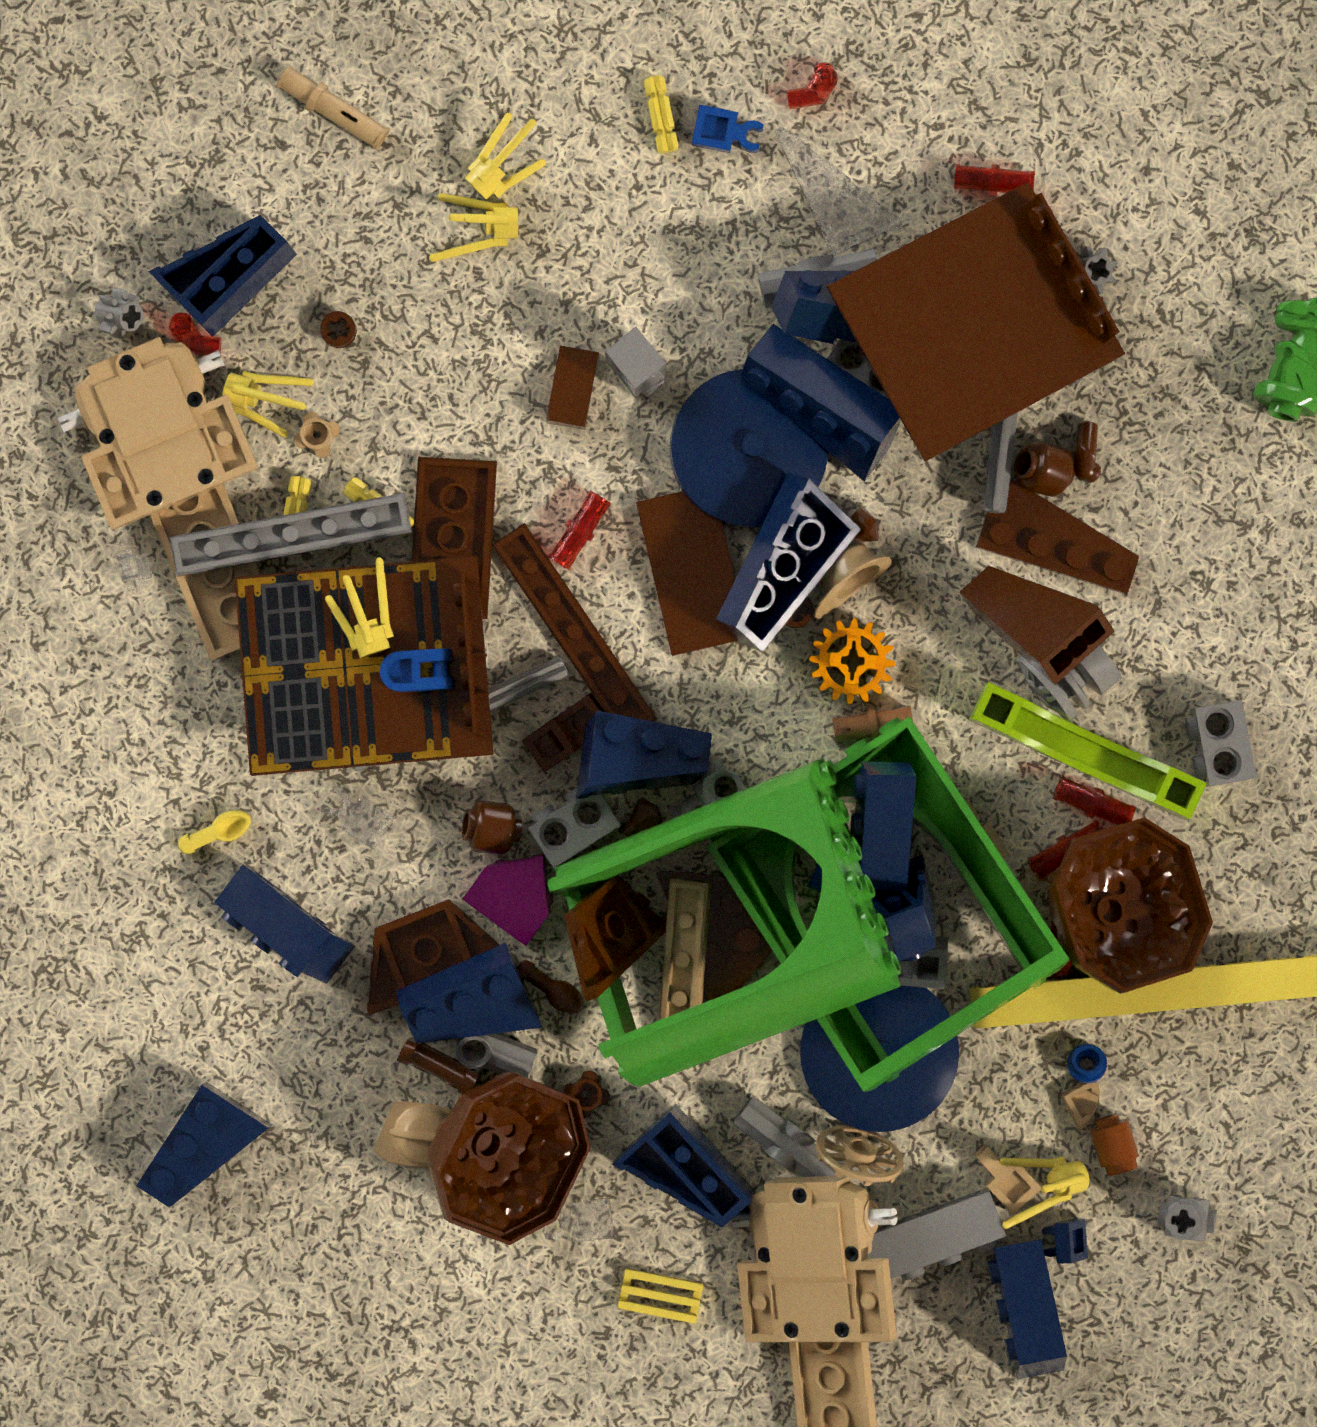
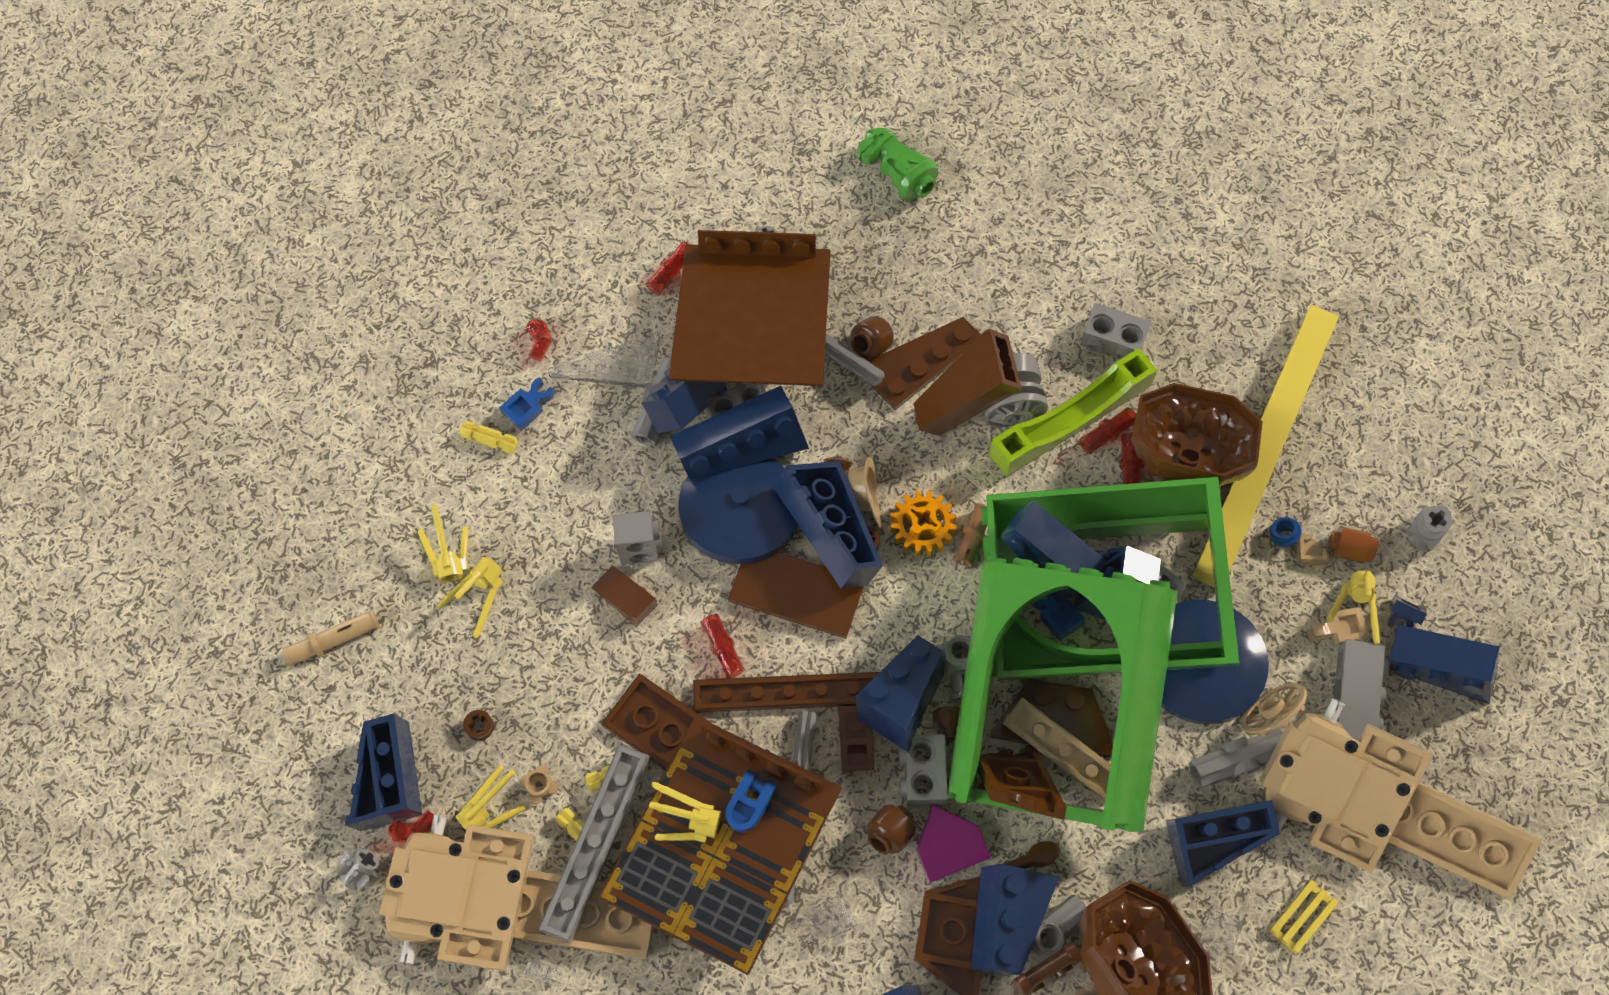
camera: 55 degrees left, 20 degrees down
(597, 1095) = (1115, 873): reddish brown plate -> none
(1085, 453) = (877, 308): reddish brown arm -> none

